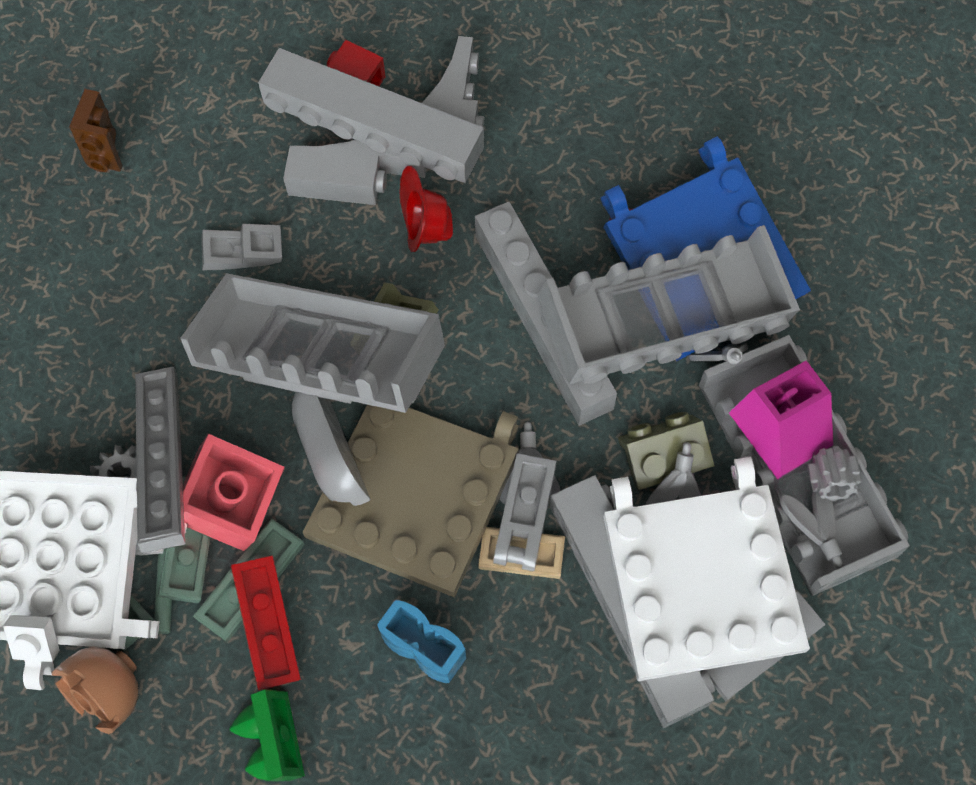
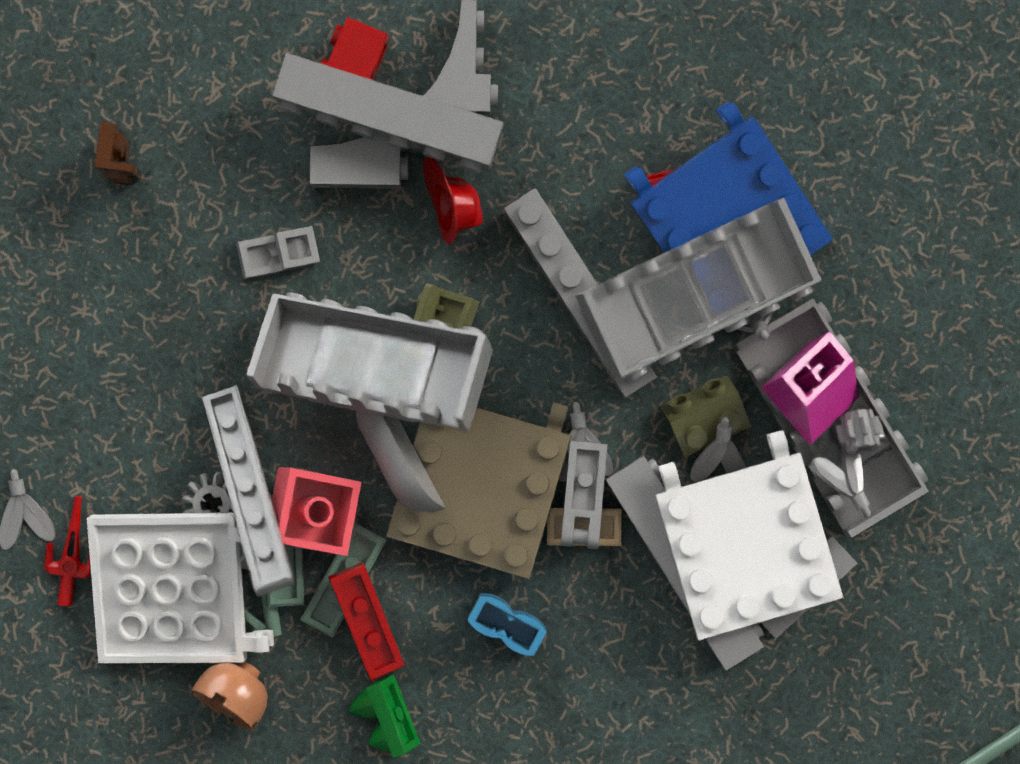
camera: 10 degrees left, 20 degrees up
(36, 643) = (168, 666): white plate -> none

